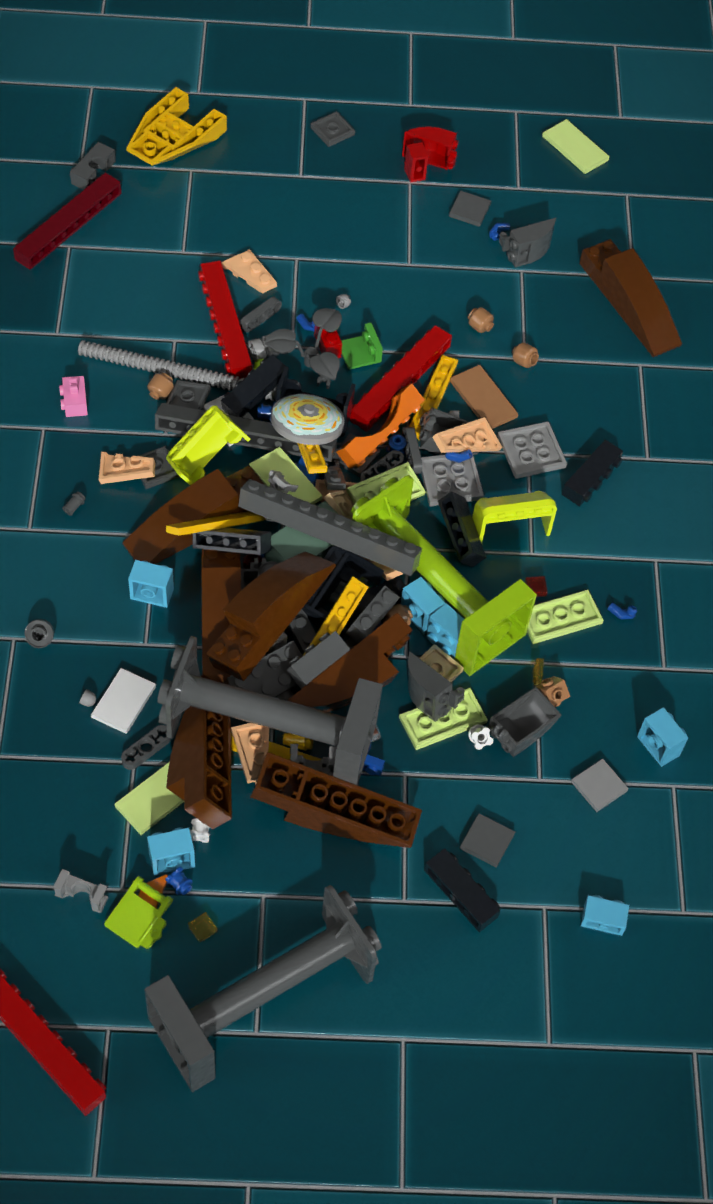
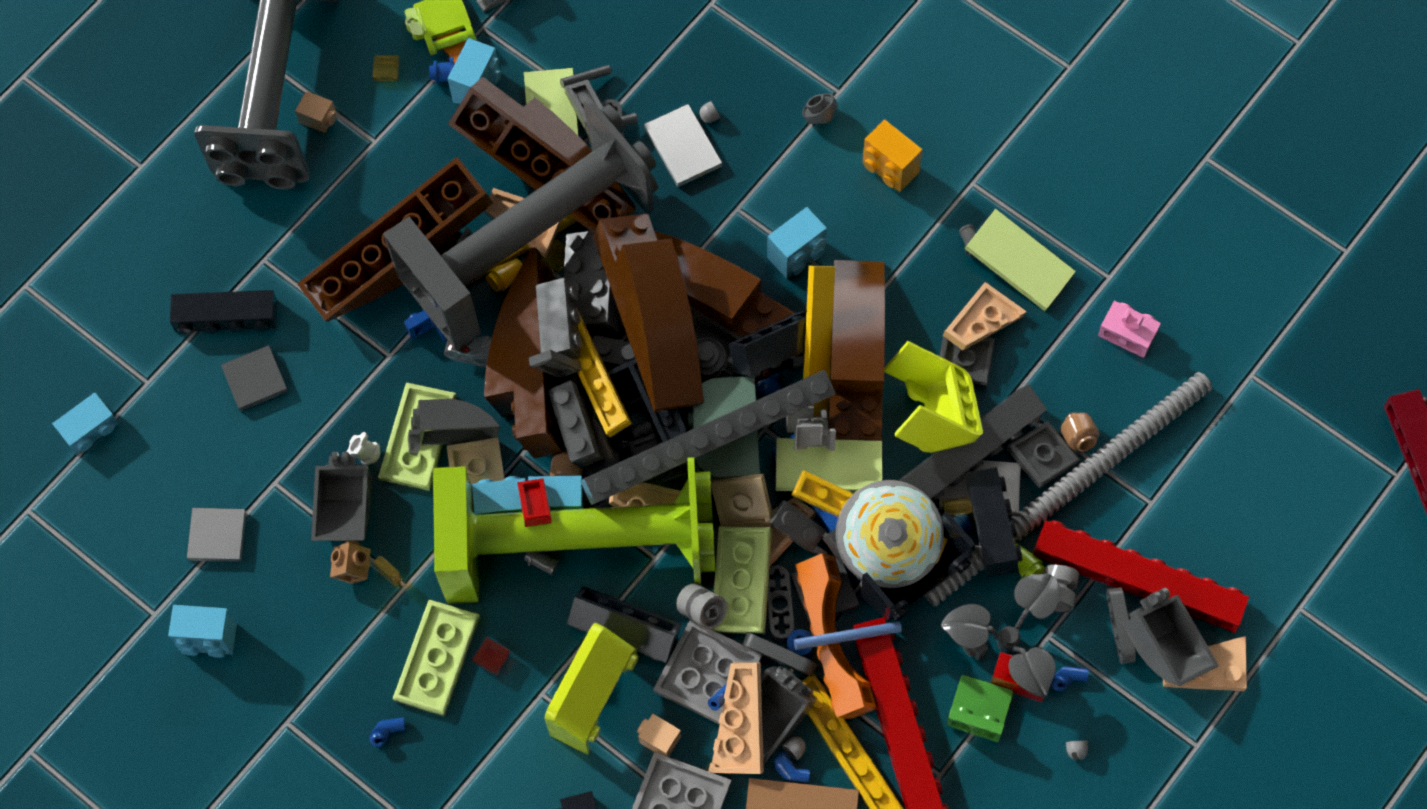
camera: 135 degrees right, 10 degrees up
(49, 568) = (891, 156): none -> light orange brick
(69, 469) = (1020, 259): none -> yellowish green tile
(138, 769) = (580, 90): none -> dark grey plate
(255, 282) = (1169, 639): none -> dark grey piece
(256, 412) = (957, 505): none -> clear yellow tile
(273, 942) = (316, 112): none -> light nougat brick
(352, 635) = (555, 364): none -> dark grey tile
(375, 413) = (847, 635): none -> medium blue bar
(420, 496) = (701, 605): none -> light grey wheel
(443, 592) = (534, 502): none -> red tile
(468, 413) = (788, 771): none -> blue arm
(505, 478) = (658, 735): none -> light nougat brick

